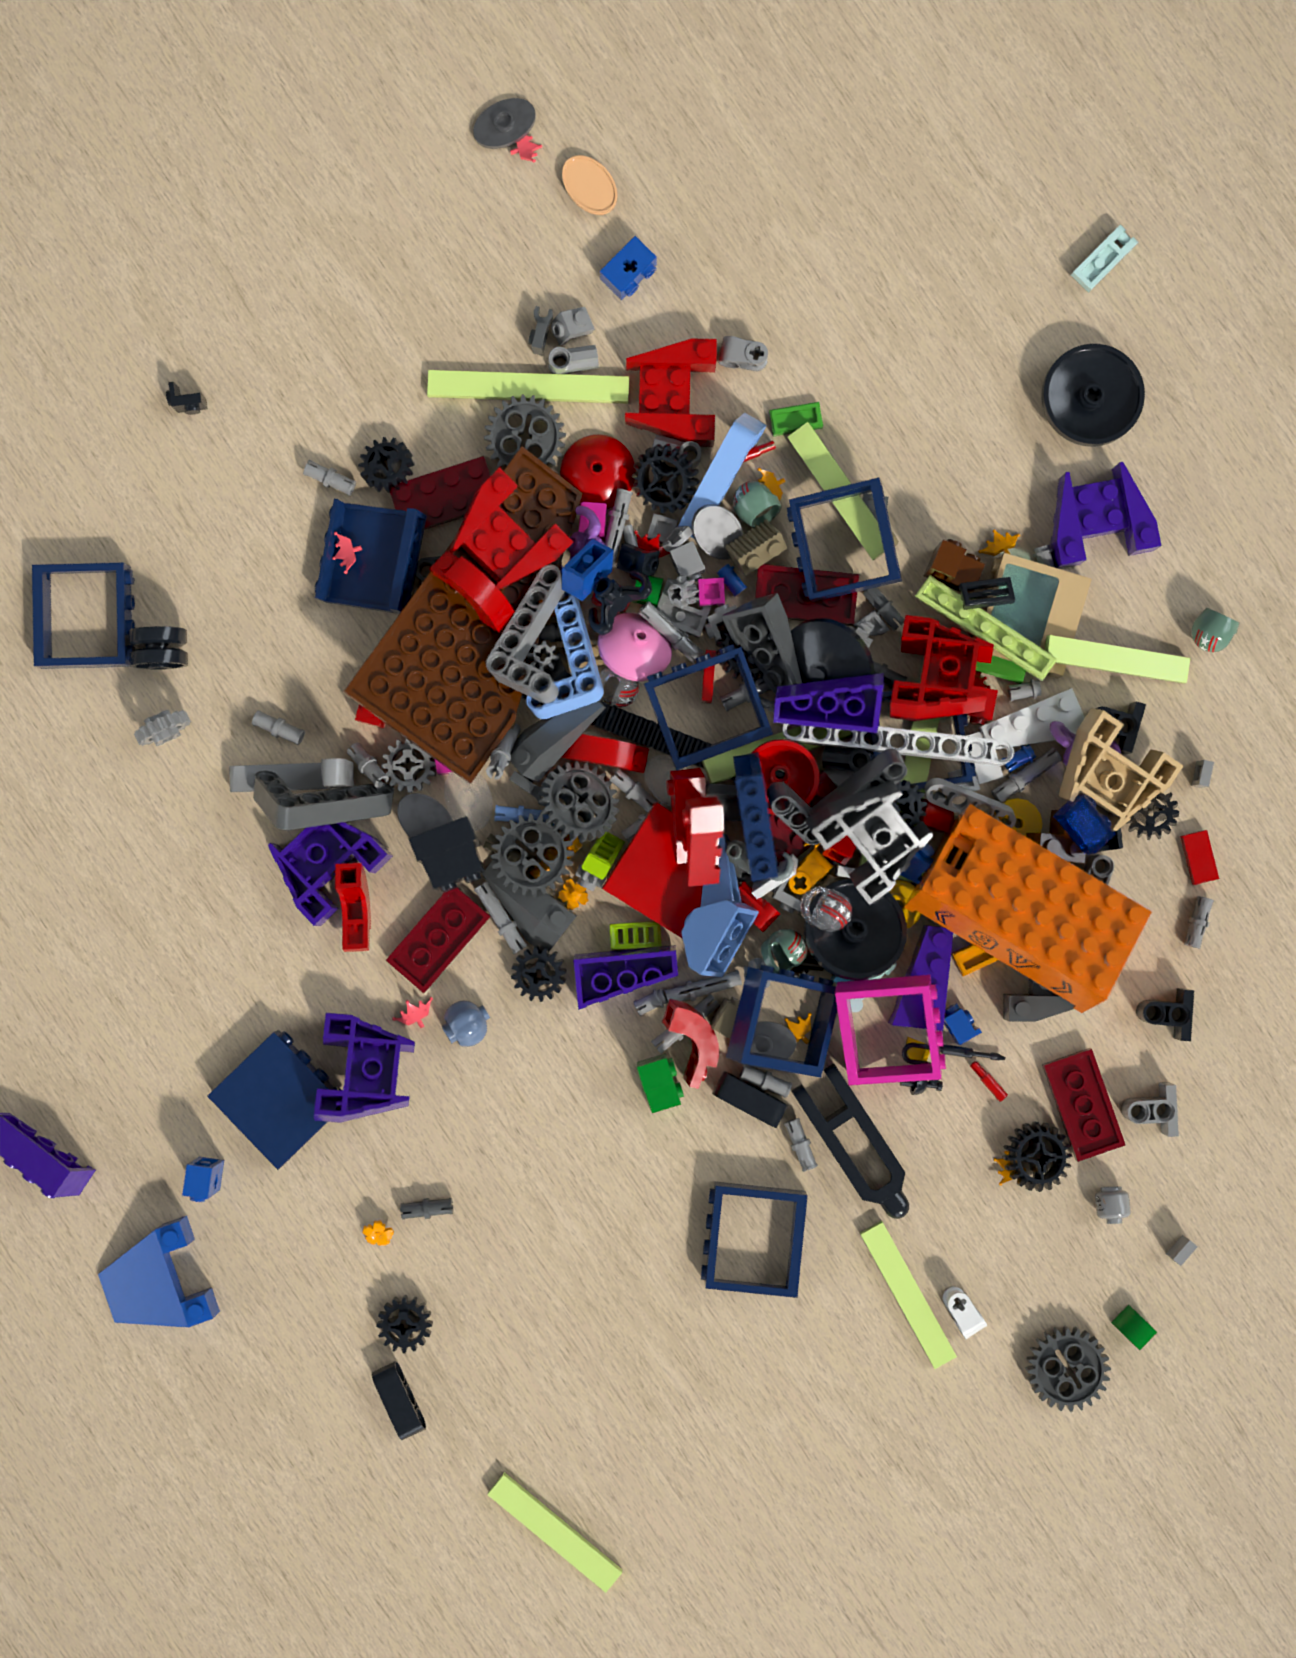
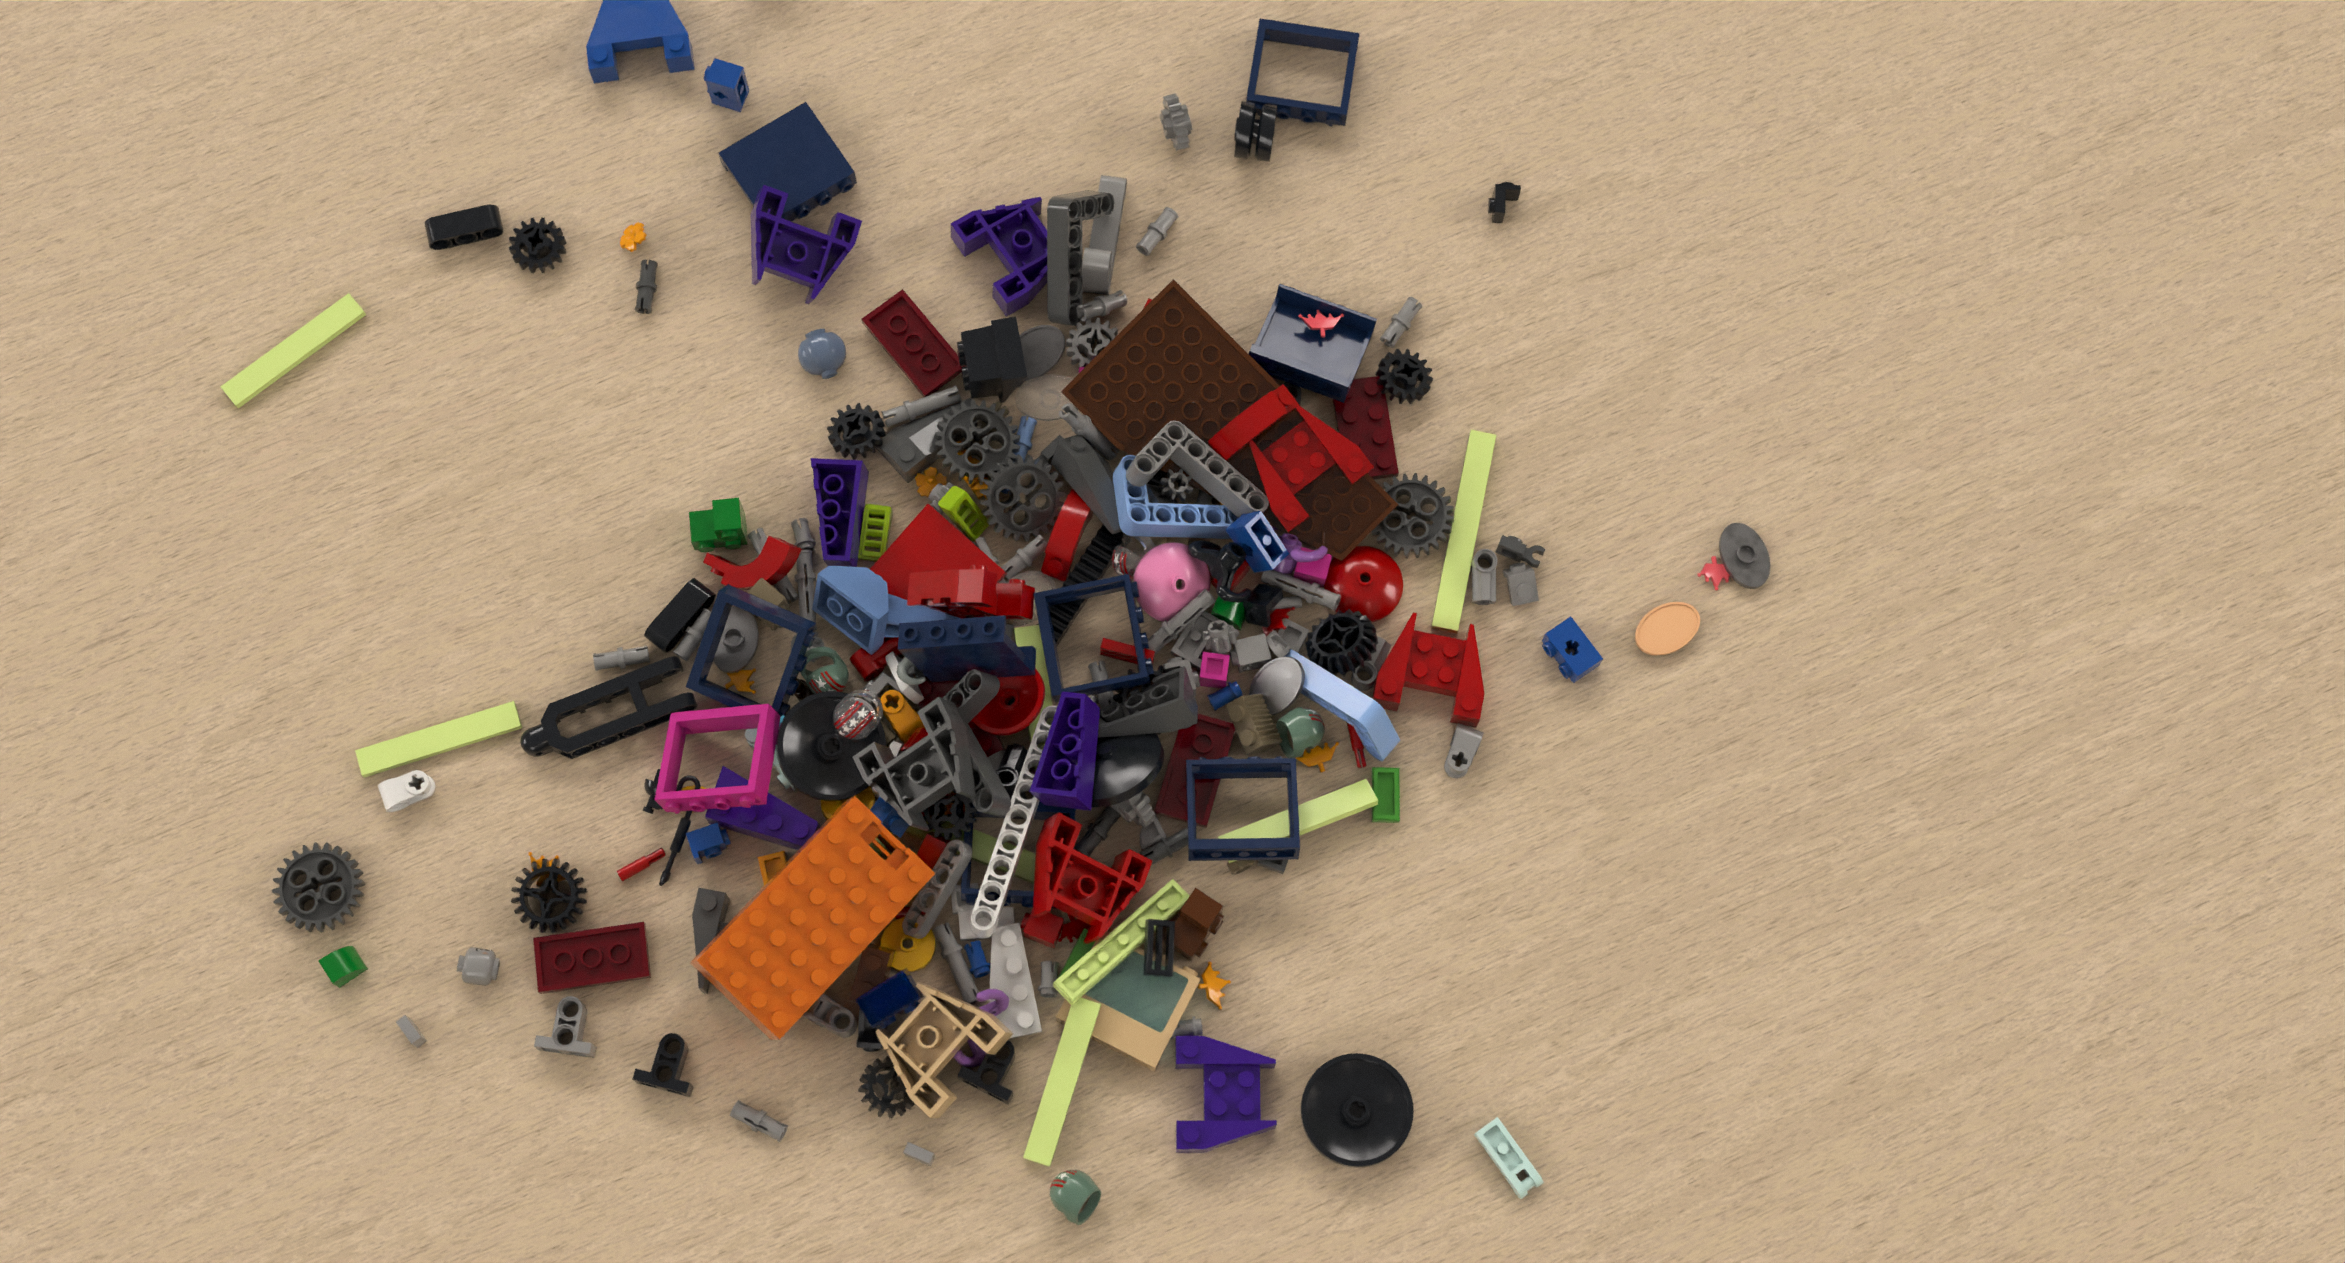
camera: 100 degrees right, 15 degrees down
(355, 904) = (962, 271): red arch -> none
(414, 1013) = (843, 310): coral piece -> none
(799, 1198) = (524, 634): dark blue window -> none
(1199, 857) = (829, 1136): red tile -> none

